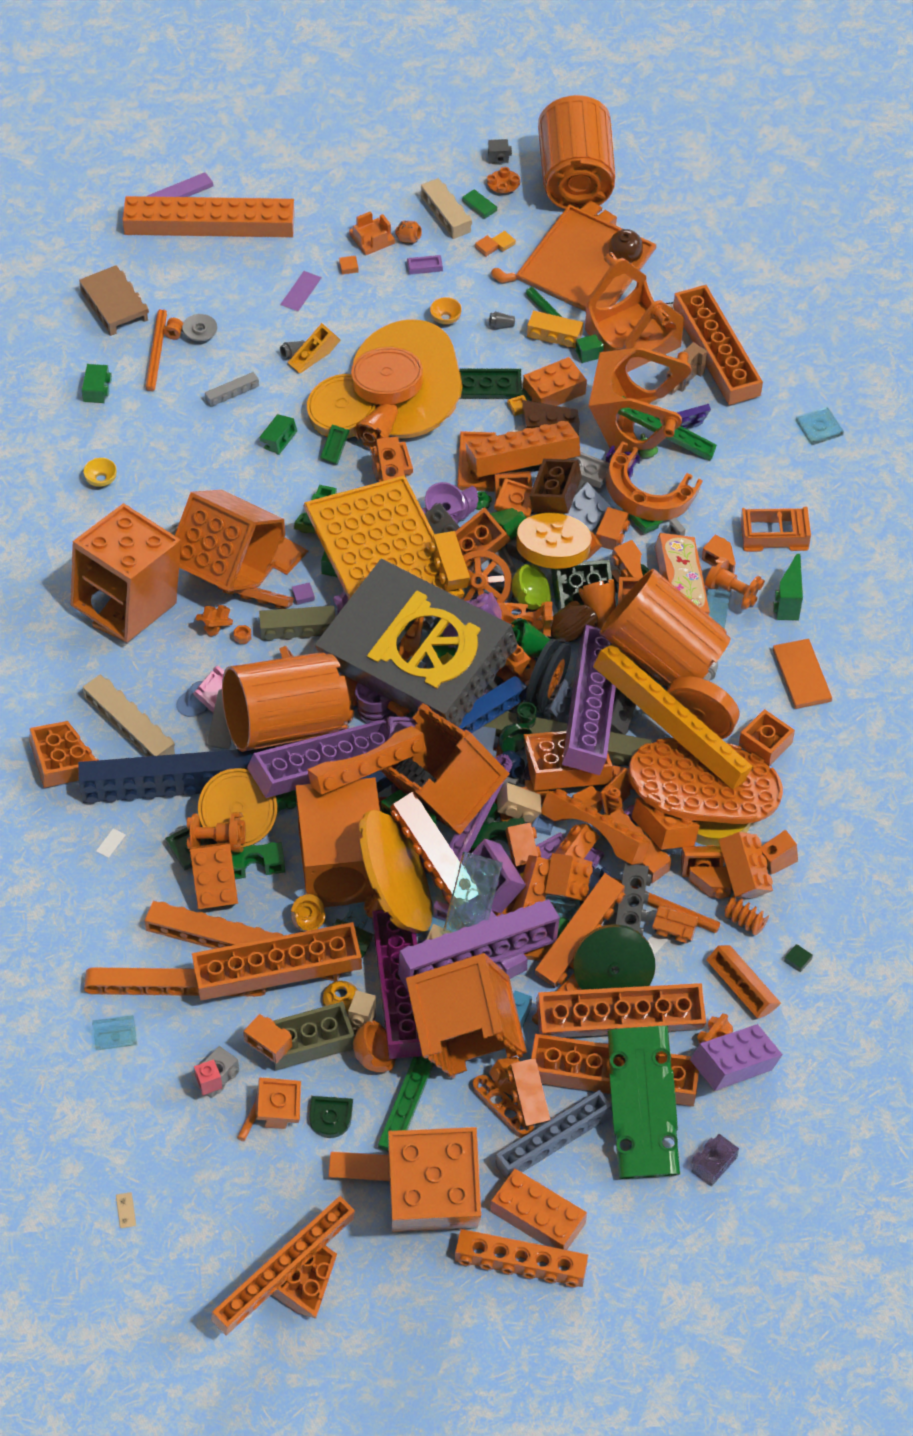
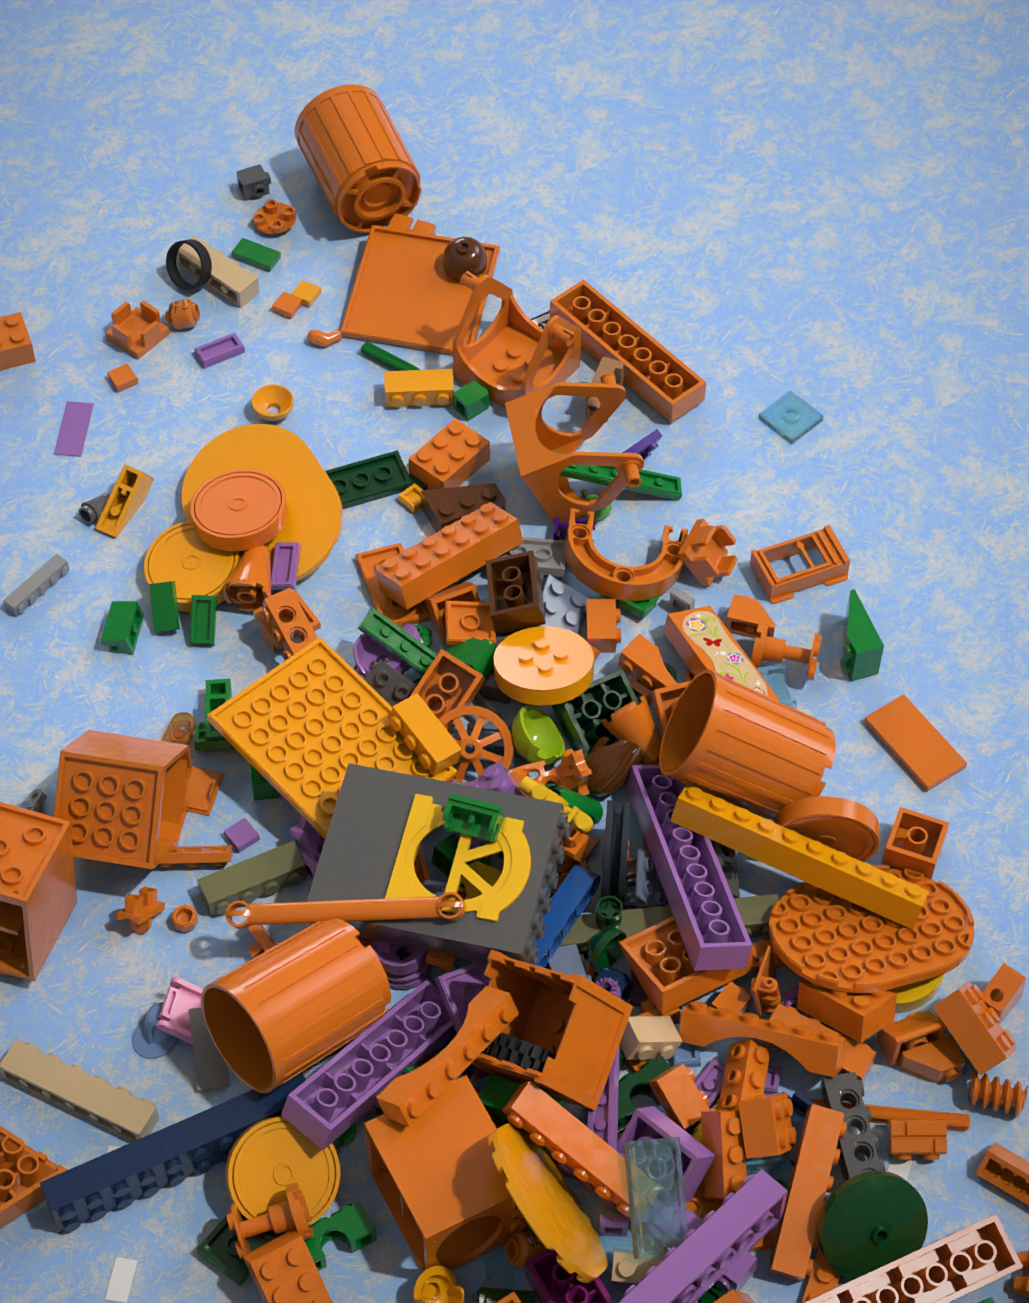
camera: 20 degrees left, 0 degrees up
(286, 513) = (181, 736): none -> clear orange plate
(311, 427) = (164, 606): none -> green tile
(341, 652) = (345, 910): none -> orange piece
(405, 423) = (285, 565): none -> medium lavender tile
(414, 197) = (171, 264): none -> black tyre
(446, 615) = (473, 818): none -> green hinge
(457, 493) = (397, 641): none -> green tile
(500, 320) = (345, 395): dark grey cone -> none
(521, 637) = (540, 791): none -> yellow piece
(709, 500) = (706, 552): none -> orange panel

